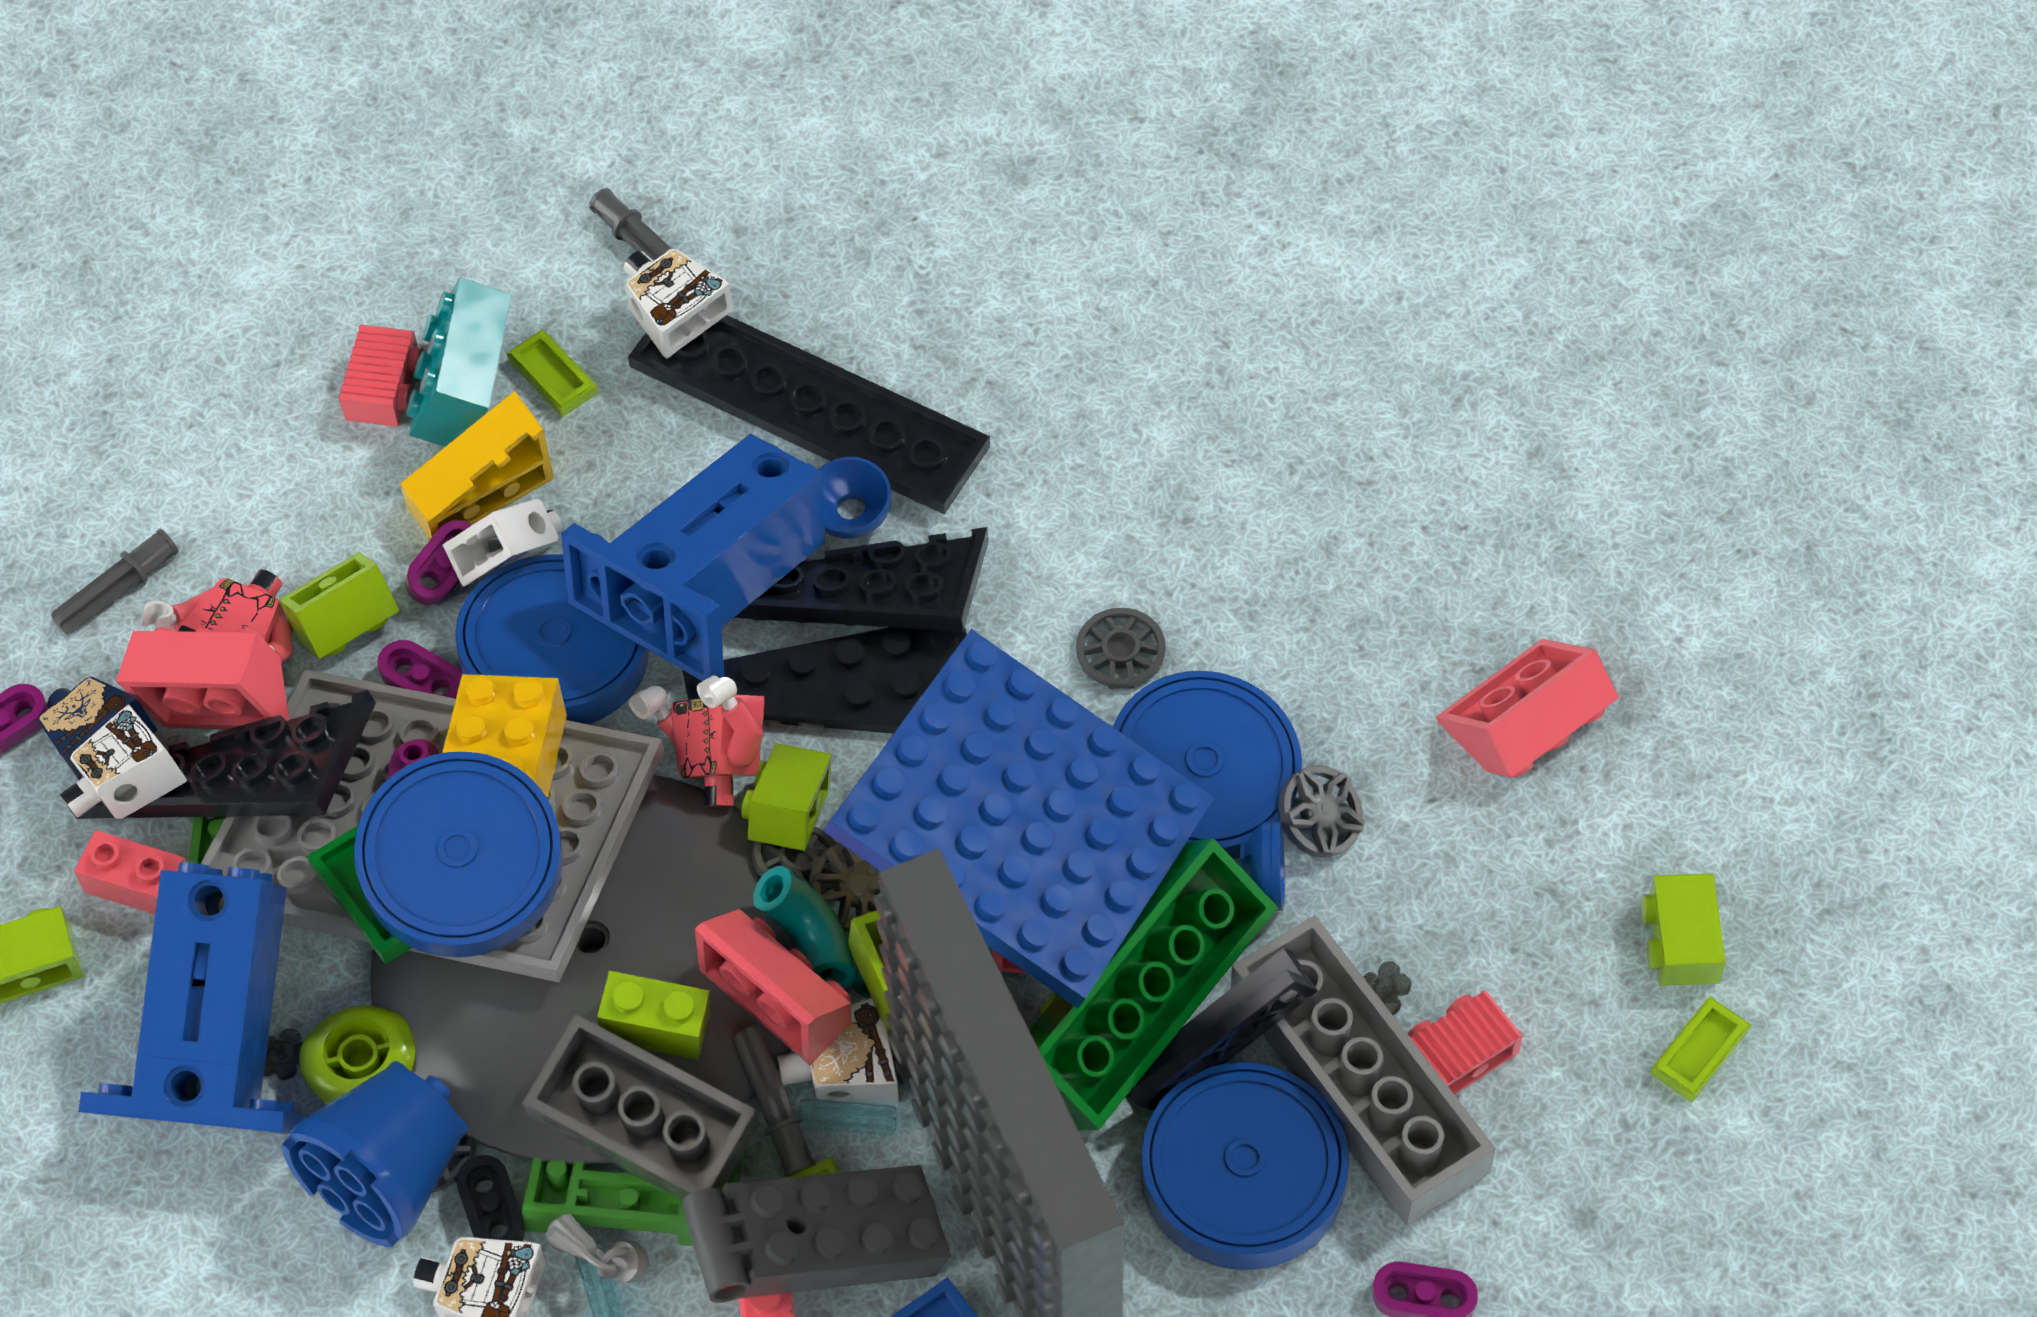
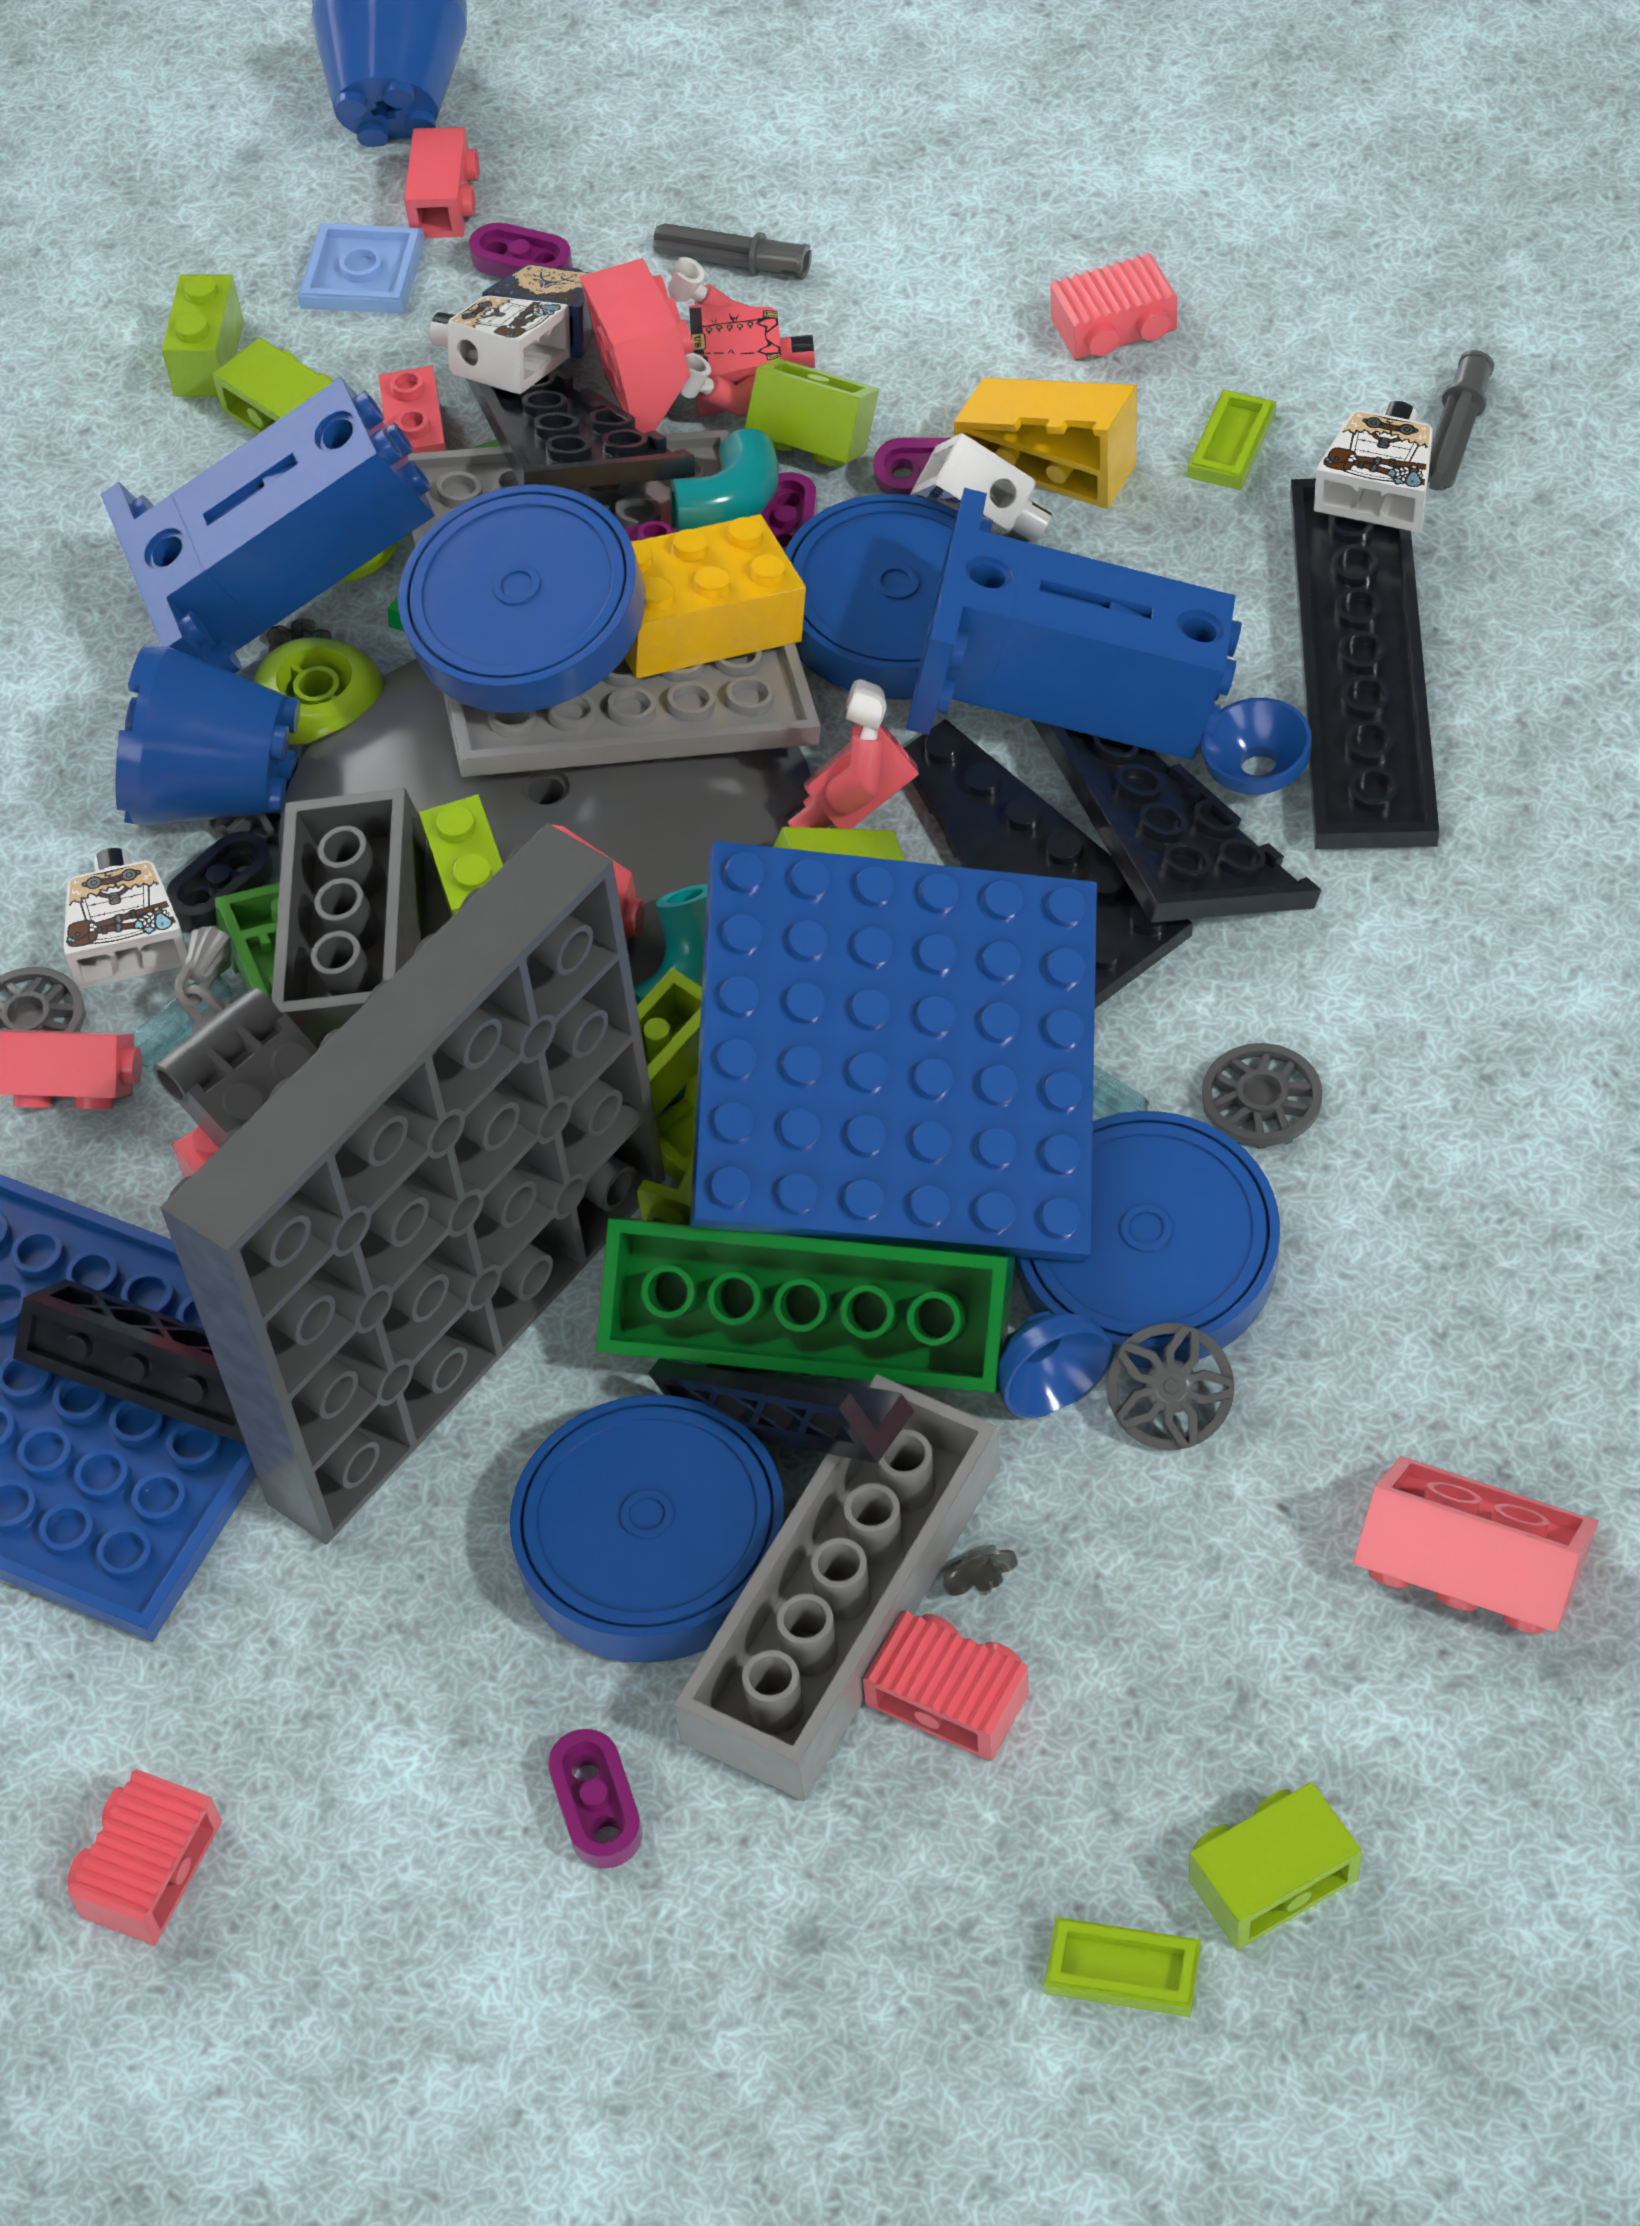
camera: 65 degrees right, 5 degrees down
(400, 683) = (737, 491): none -> teal cylinder
(459, 361) = (1164, 336): brick -> none

